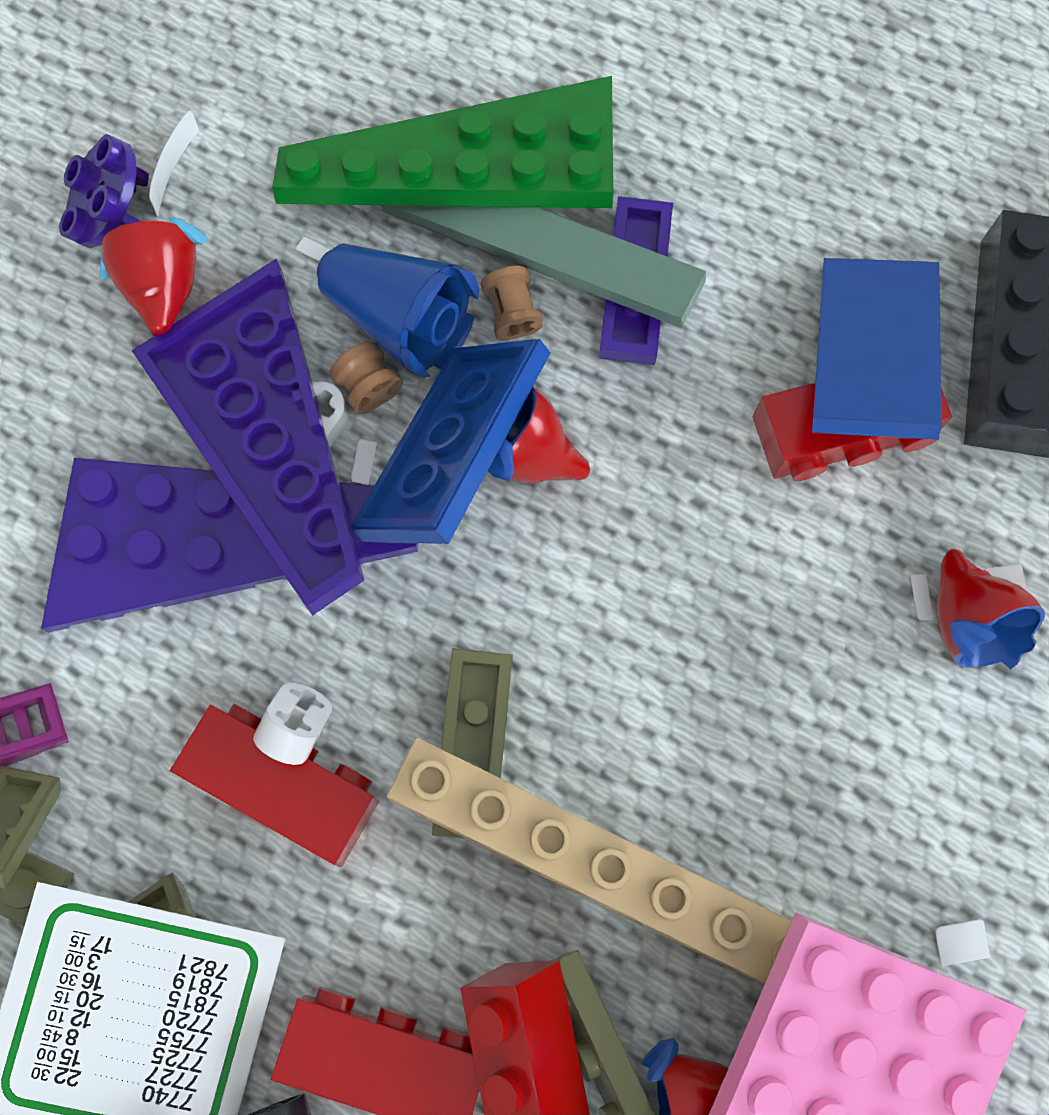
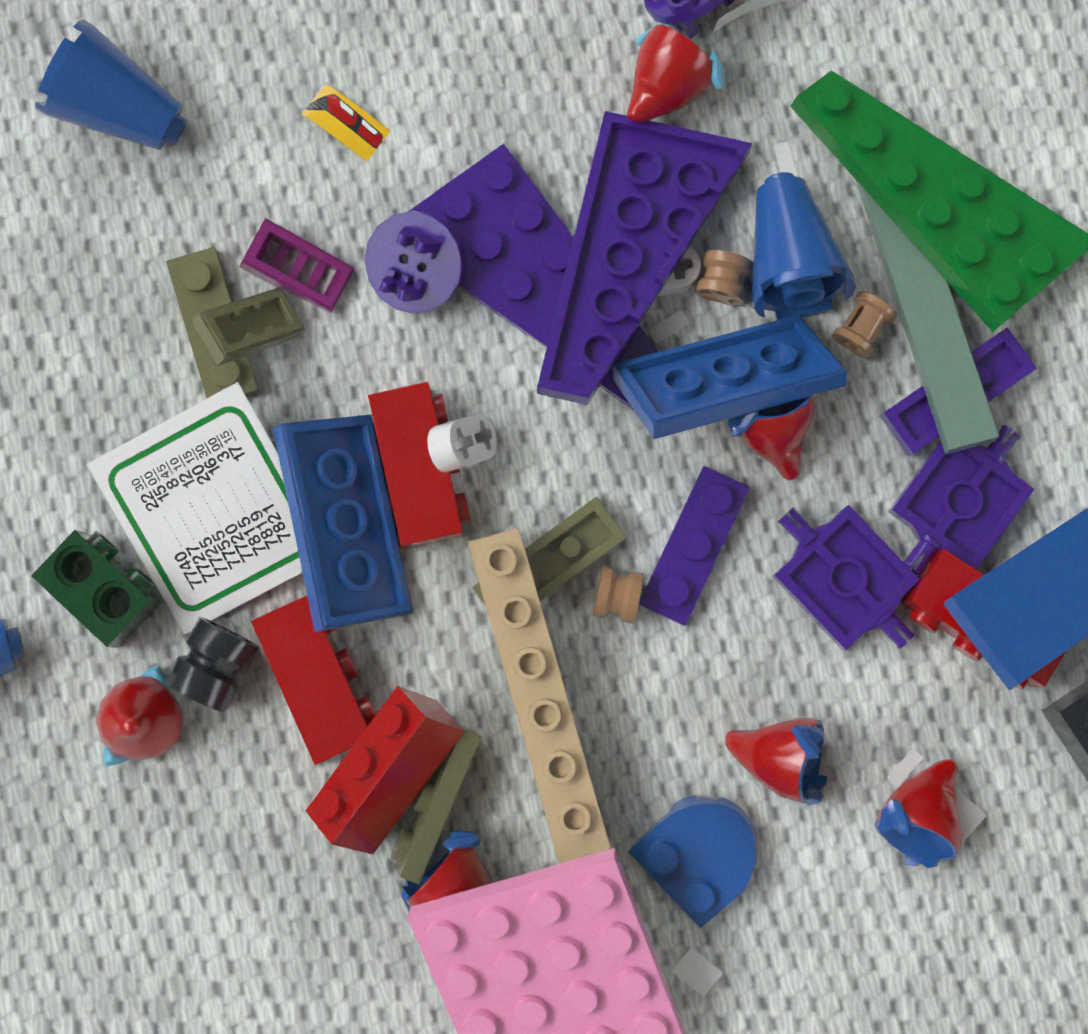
camera: 45 degrees right, 10 degrees up
(82, 597) = (422, 240): none -> plate
(261, 903) = (342, 521): none -> blue tile
(556, 707) = (618, 594): none -> medium nougat wheel
(572, 606) = (693, 546): none -> dark purple plate
(714, 502) = (846, 578): none -> dark purple plate
(730, 355) = (961, 501): none -> dark purple plate
(828, 689) = (783, 757): none -> red hat
(856, 843) = (700, 854): none -> blue slope

